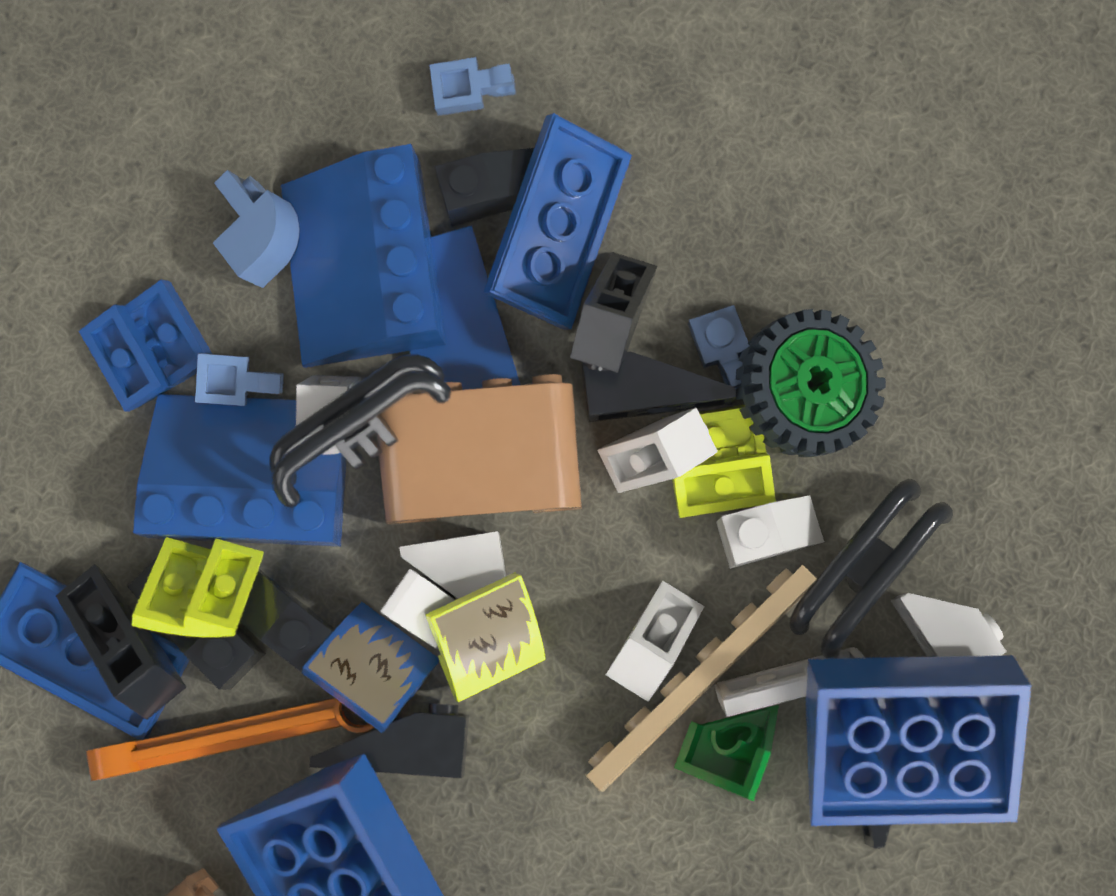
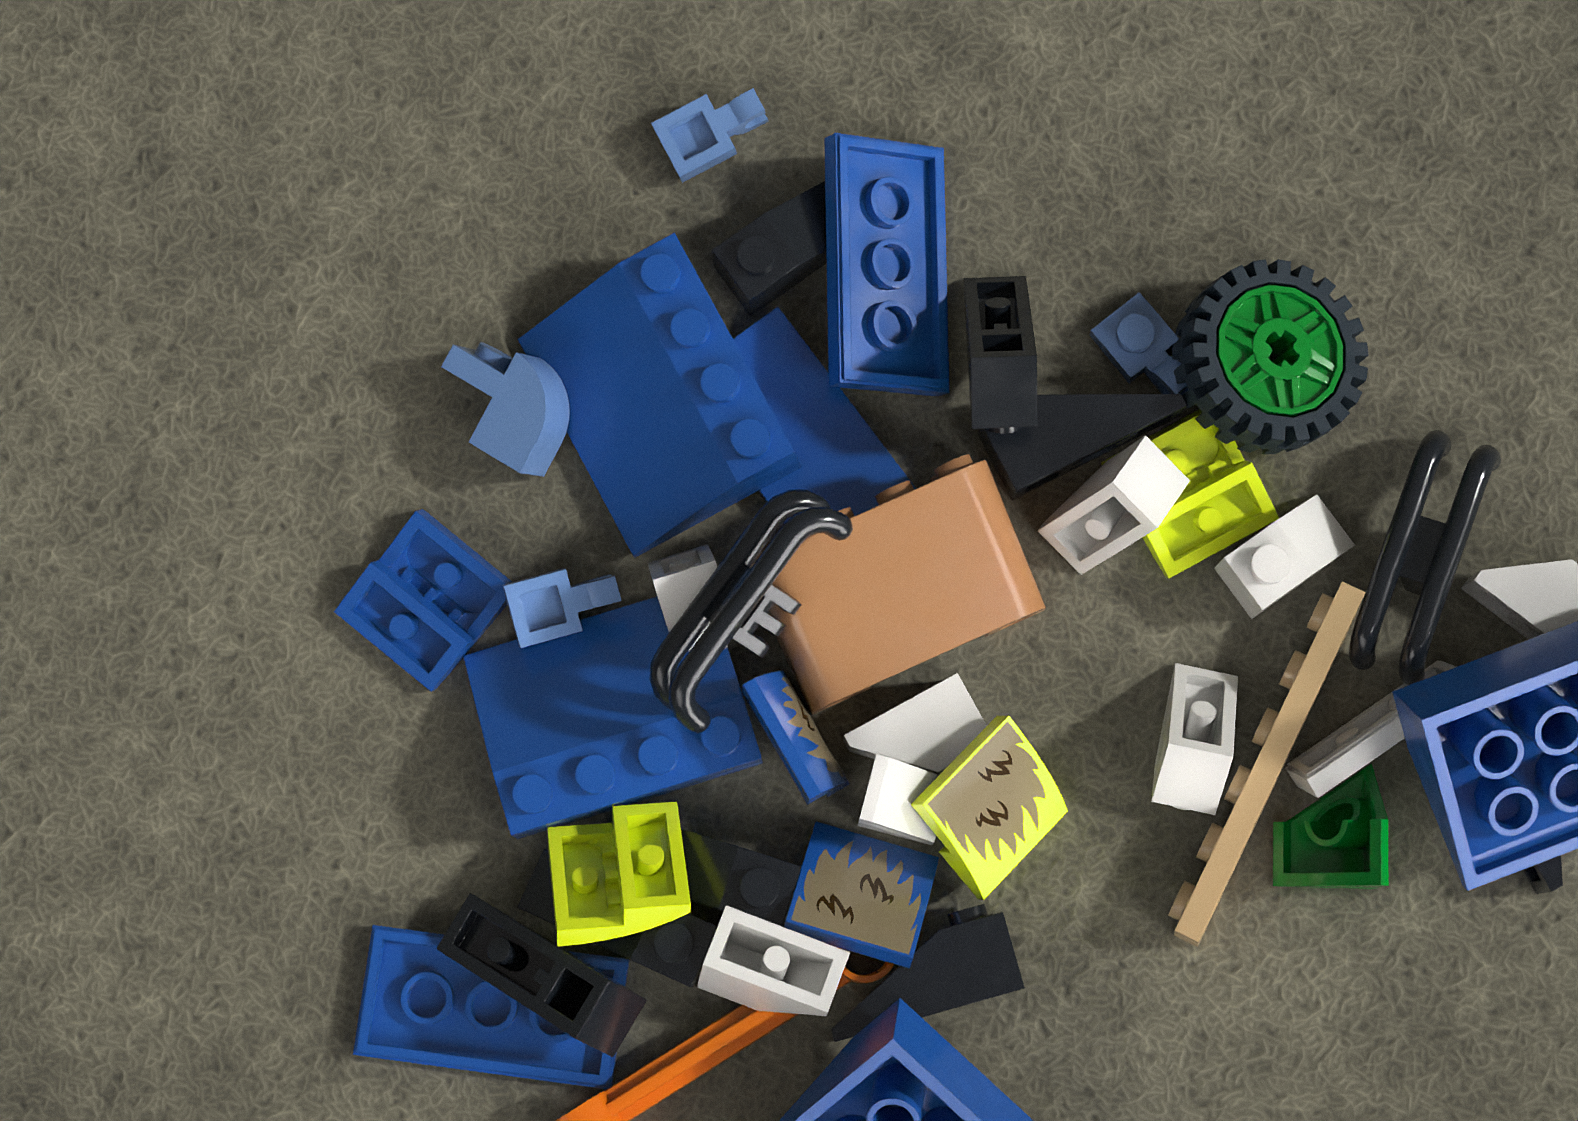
camera: 20 degrees left, 0 degrees up
(281, 695) = (771, 966): none -> white slope
(364, 534) = (794, 735): none -> blue slope

